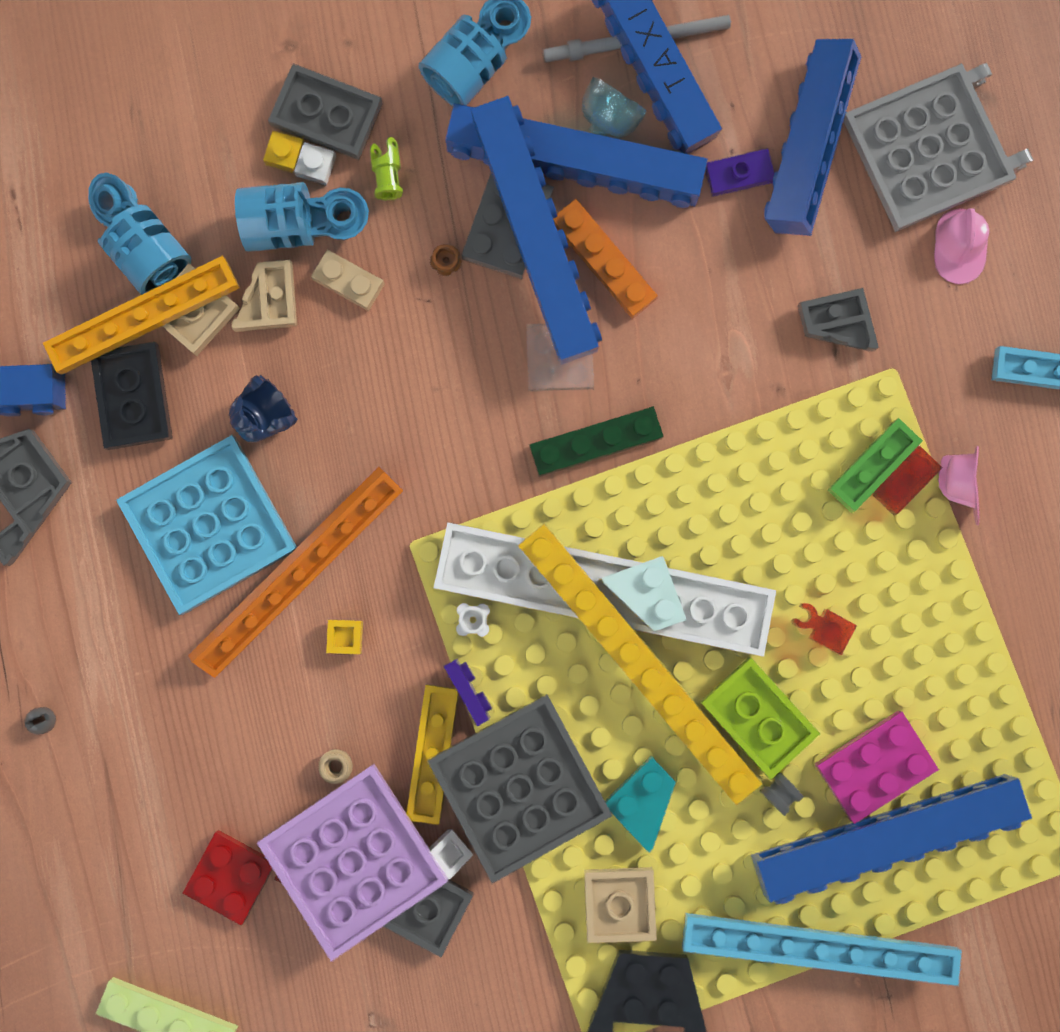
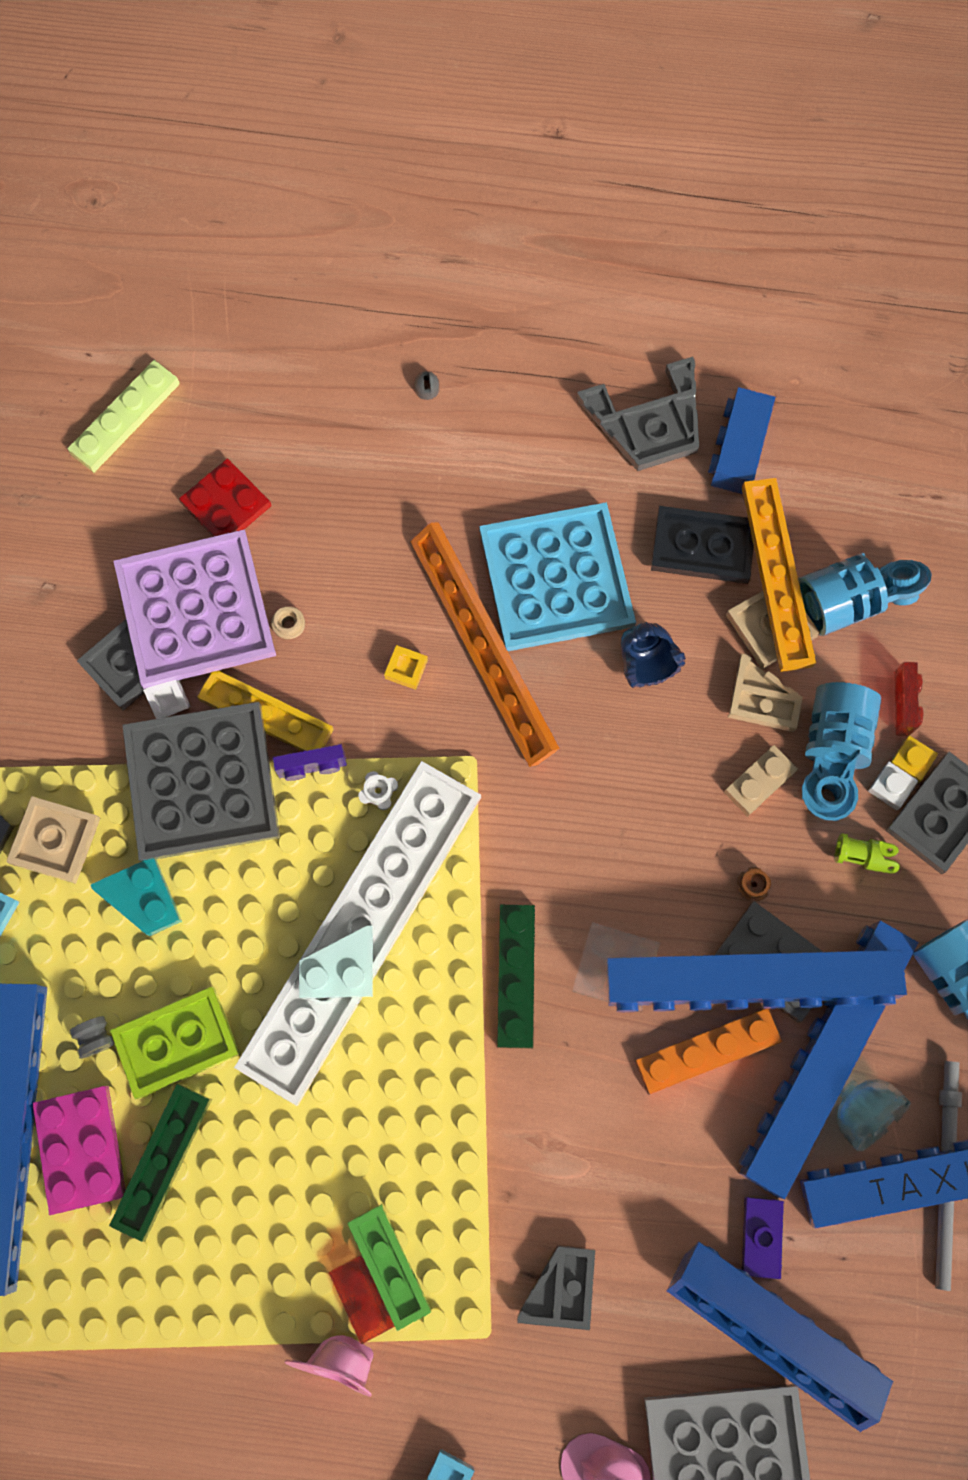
camera: 110 degrees right, 10 degrees down
(224, 171) = (907, 709): none -> clear red plate
(640, 664) = (272, 937): yellow plate -> none
(828, 629) = (235, 1148): clear red plate -> none
(862, 690) = (160, 1163): none -> dark green plate

